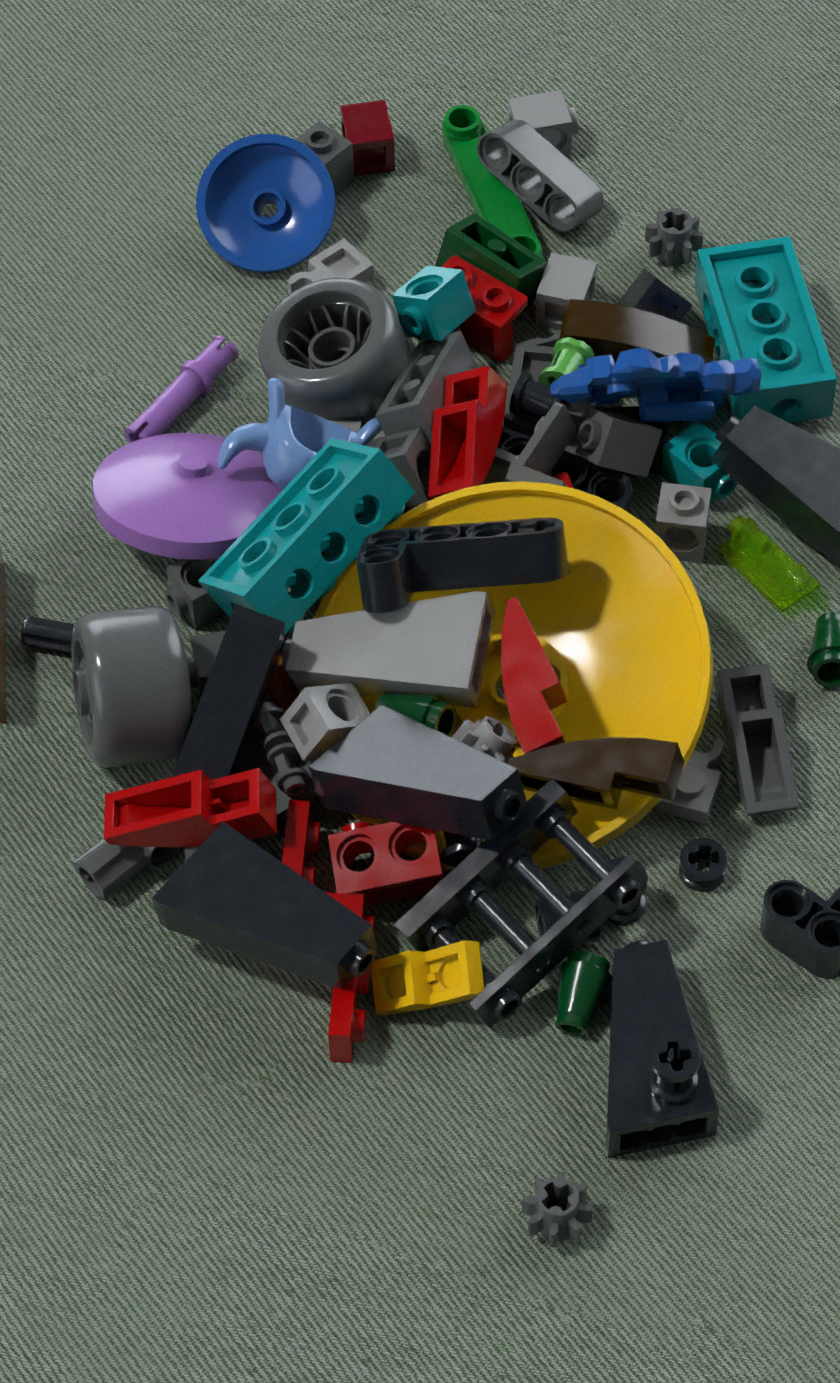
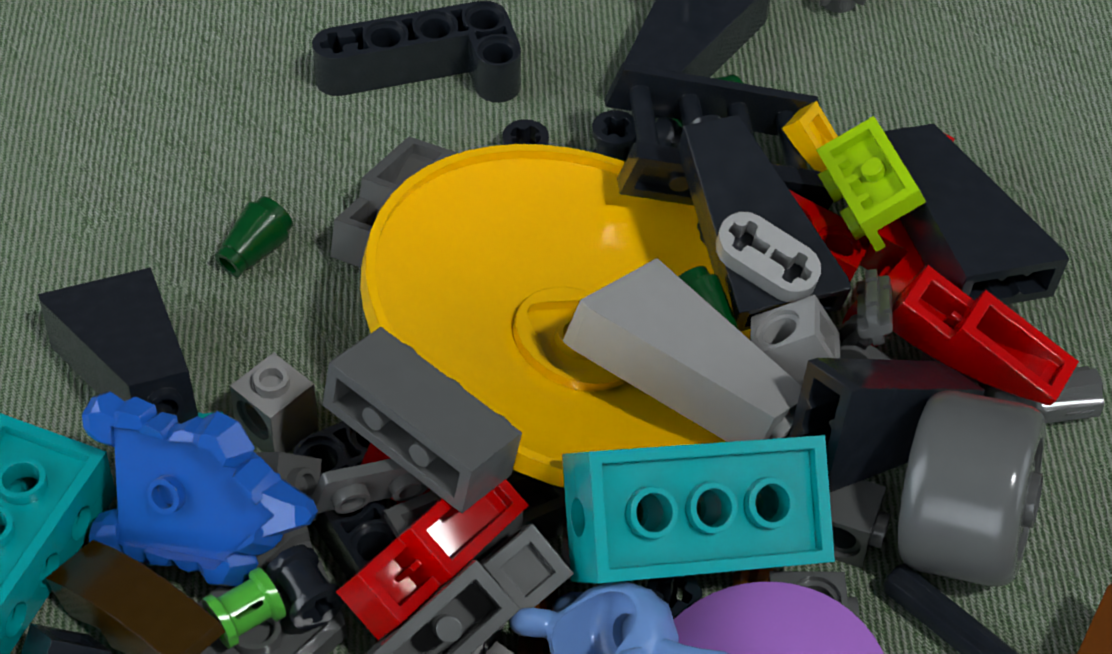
camera: 150 degrees left, 5 degrees down
(286, 782) = (874, 307): none -> dark grey axle
(359, 881) = (870, 179): none -> lime bracket
(382, 729) = (767, 257): none -> light grey beam
(458, 557) = (574, 348): black beam -> none
(488, 737) = (670, 235): light grey gear -> none
(523, 450) = (421, 419): none -> dark grey brick
(529, 682) = (591, 244): red slope -> none
(603, 767) = (584, 163): dark brown slope -> none
(766, 564) = (227, 336): clear neon green hinge -> none

